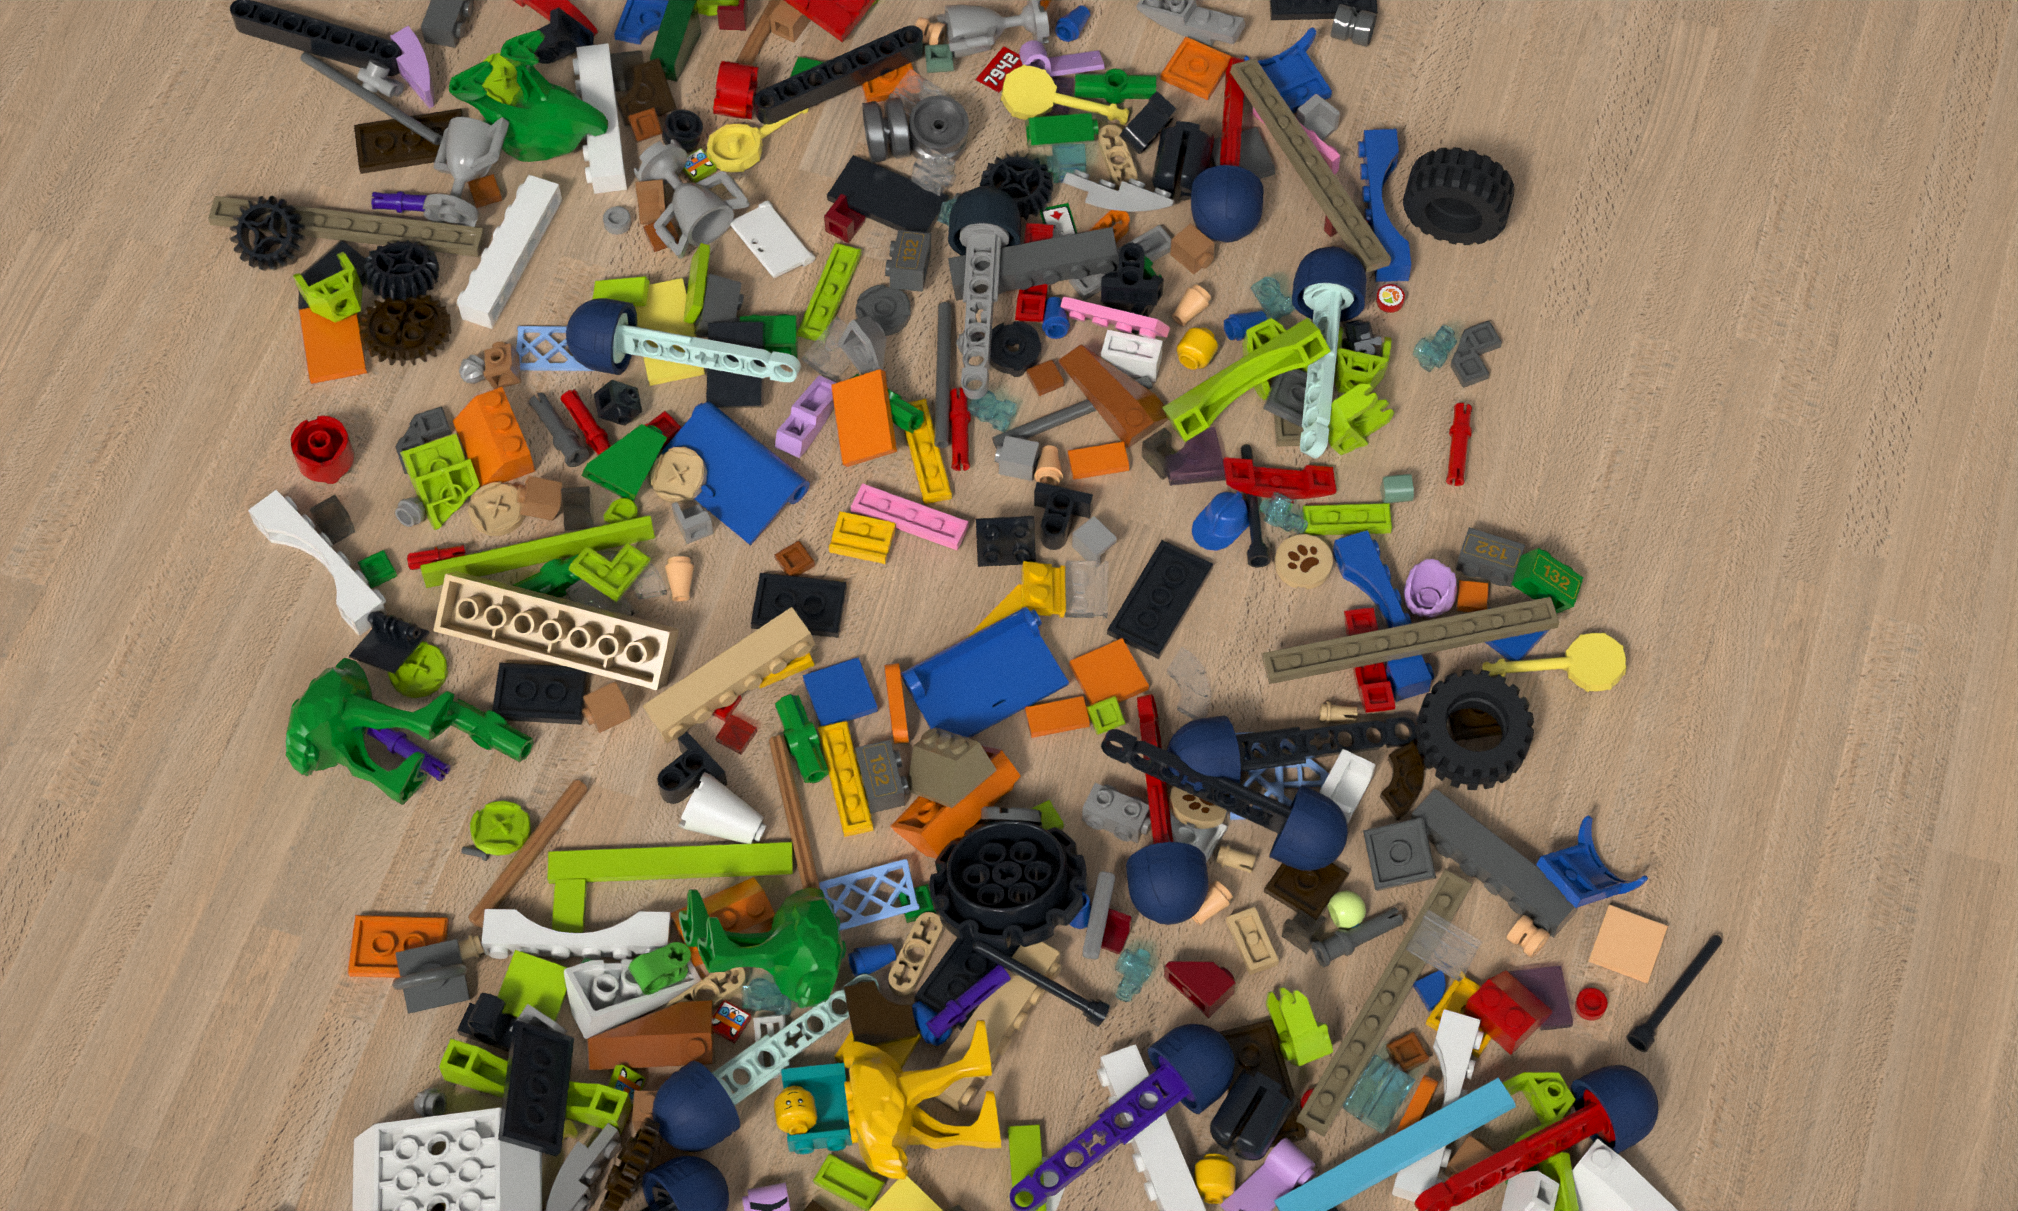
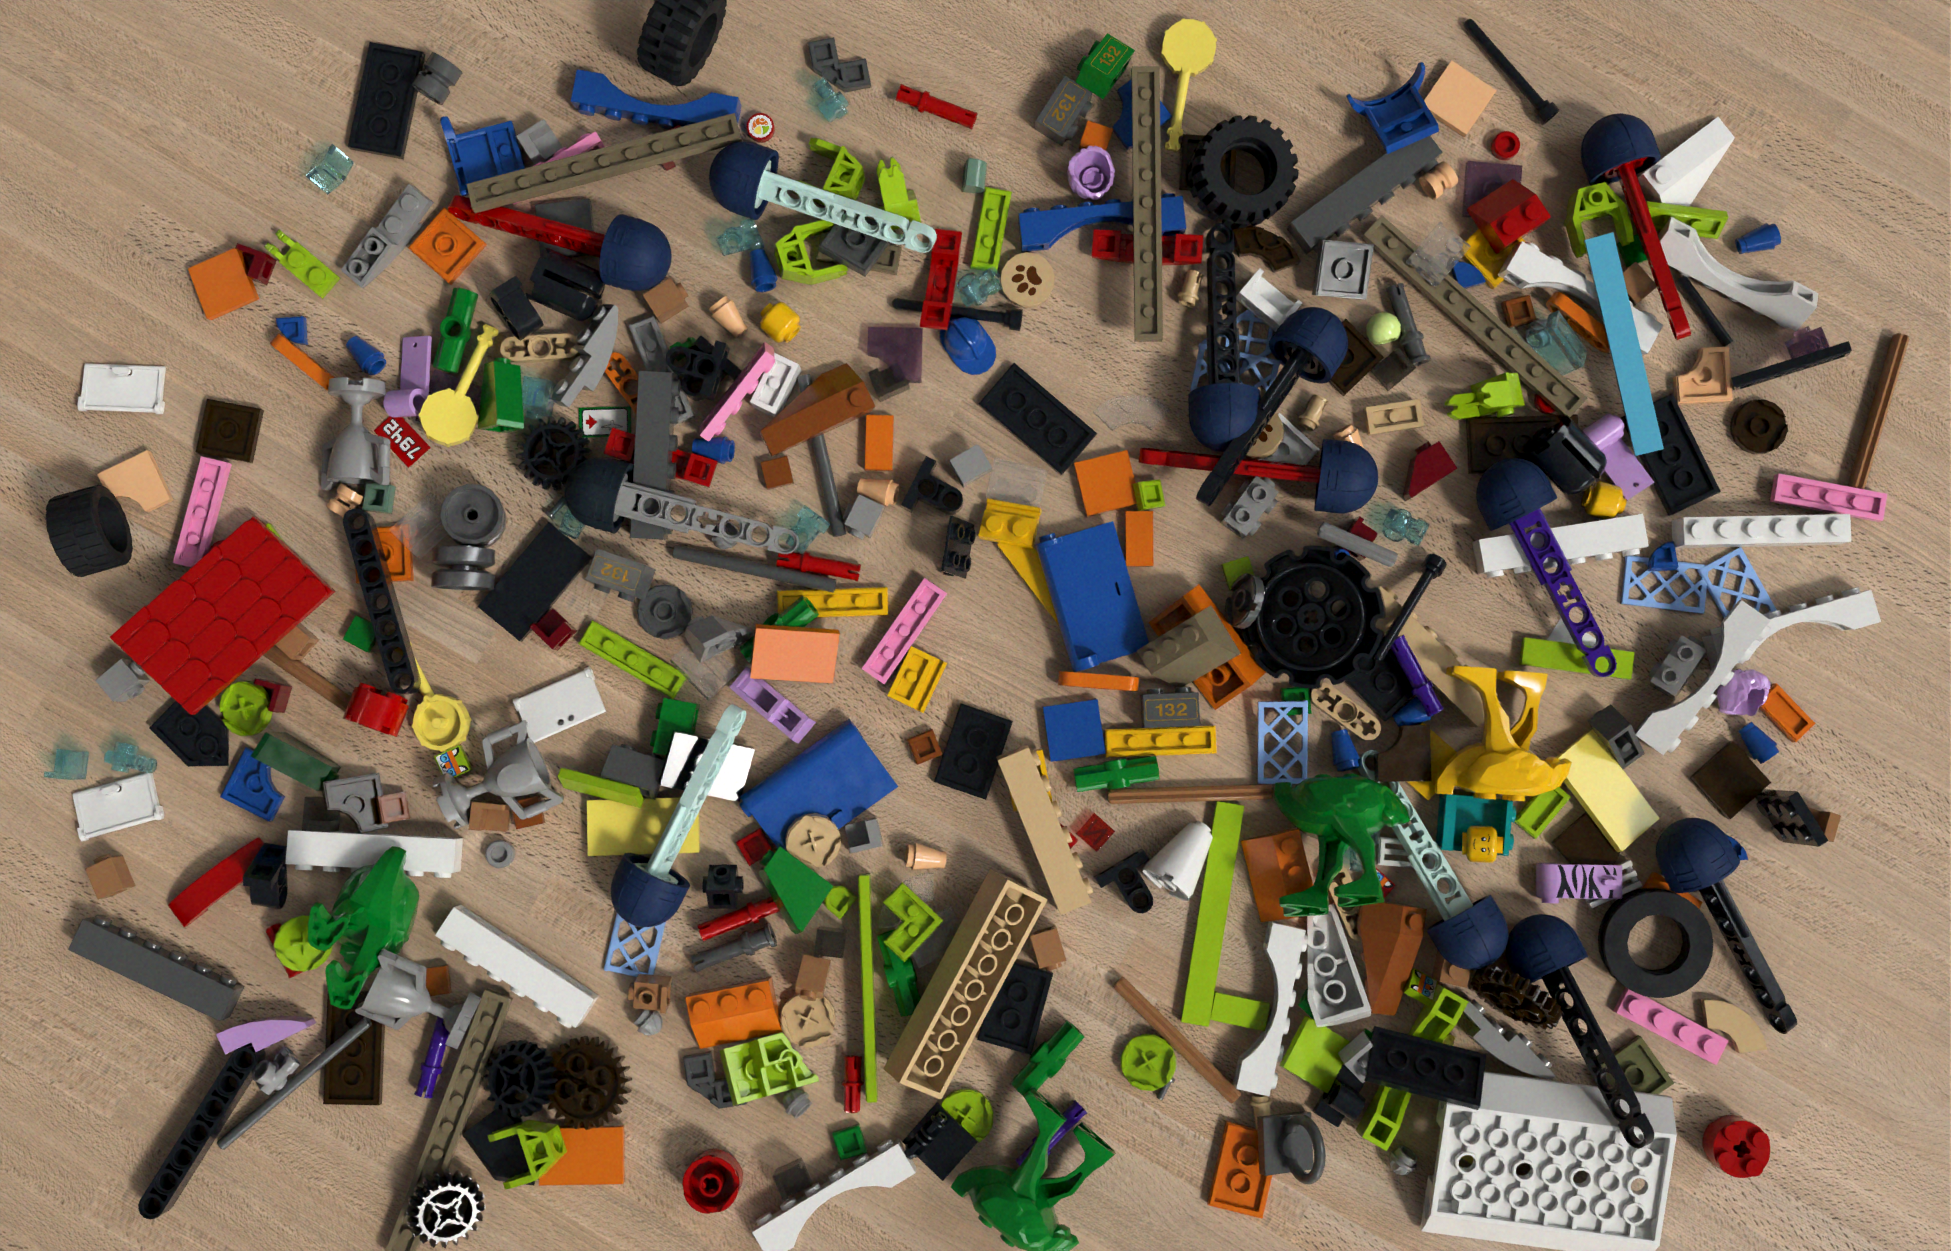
camera: 80 degrees left, 25 degrees up
(625, 289) = (593, 864): lime tile -> none
(661, 967) = (1329, 944): bright green piece -> none
(684, 128) = (406, 760): black wheel -> none
(934, 171) = (523, 530): clear brick -> none
(1015, 362) = (739, 479): black plate -> none
(1288, 351) = (822, 231): lime arch -> none
(1360, 337) = (809, 166): black hips -> none

